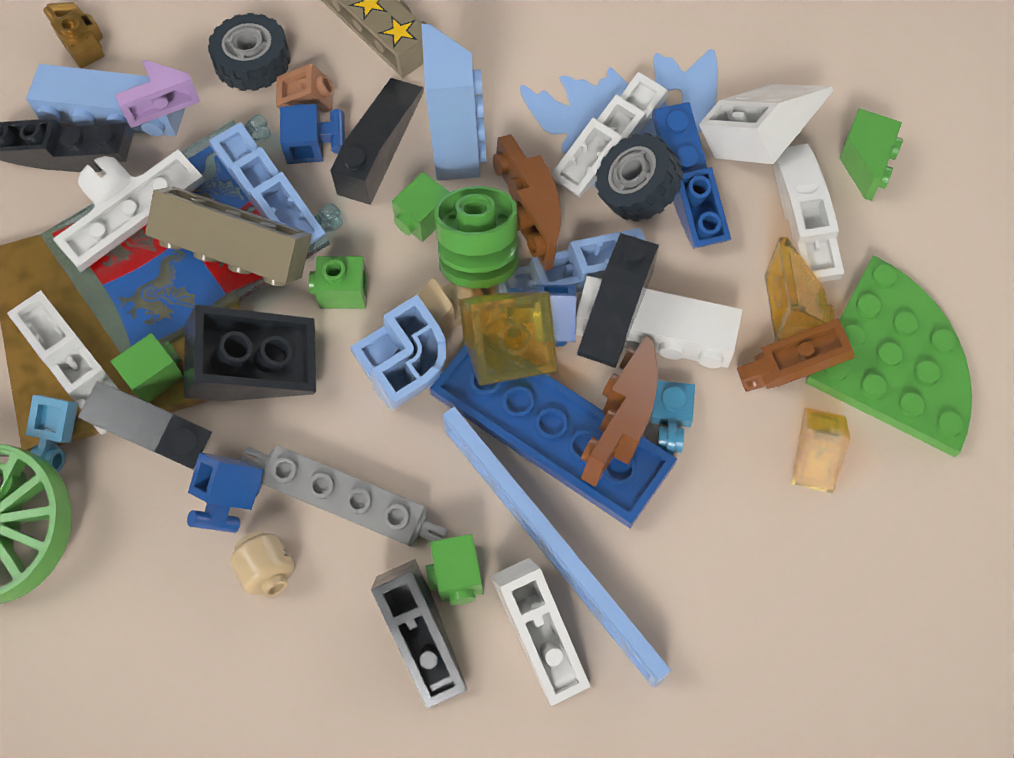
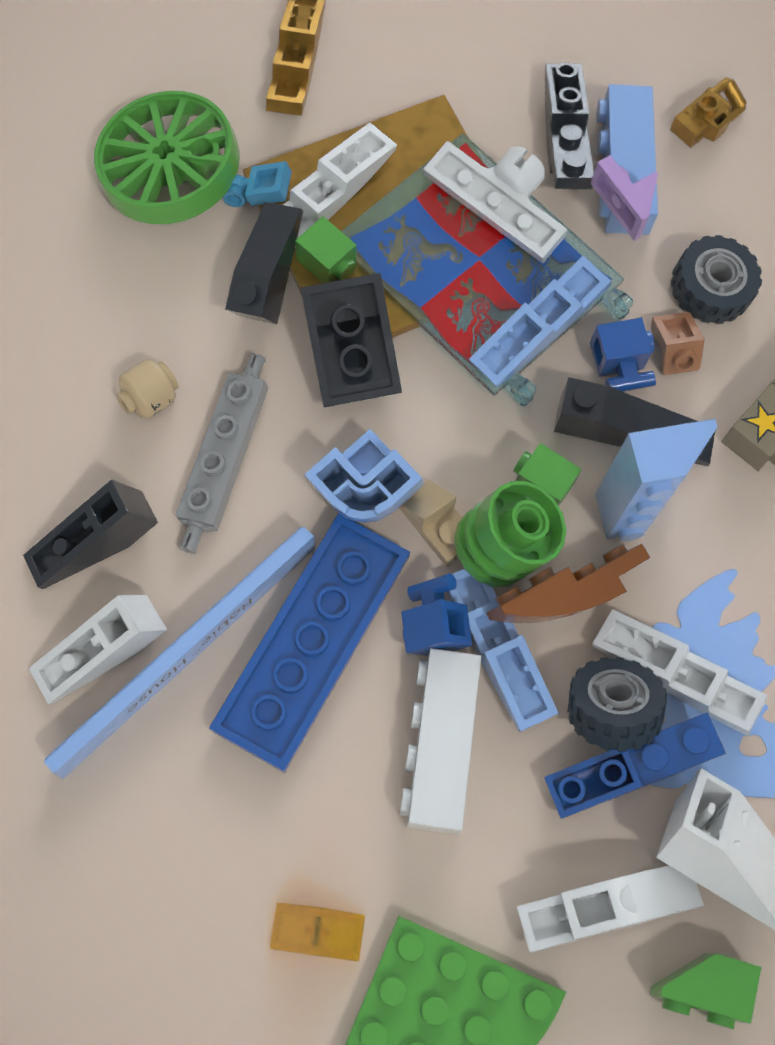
camera: 75 degrees right, 5 degrees up
(222, 485) = (211, 340): blue brick -> none
(227, 235) = (474, 293): dark tan brick -> none
(339, 282) = (449, 412): bright green brick -> none
(455, 570) = (150, 562): bright green brick -> none
(509, 335) = (397, 578): clear yellow slope -> none
(618, 299) = (446, 686): black slope -> none
(626, 411) = (338, 714): dark orange slope -> none
(674, 408) = (351, 766): dark azure plate -> none
(794, 293) = (486, 896): clear yellow slope -> none
(797, 357) = (416, 900): dark orange hinge -> none

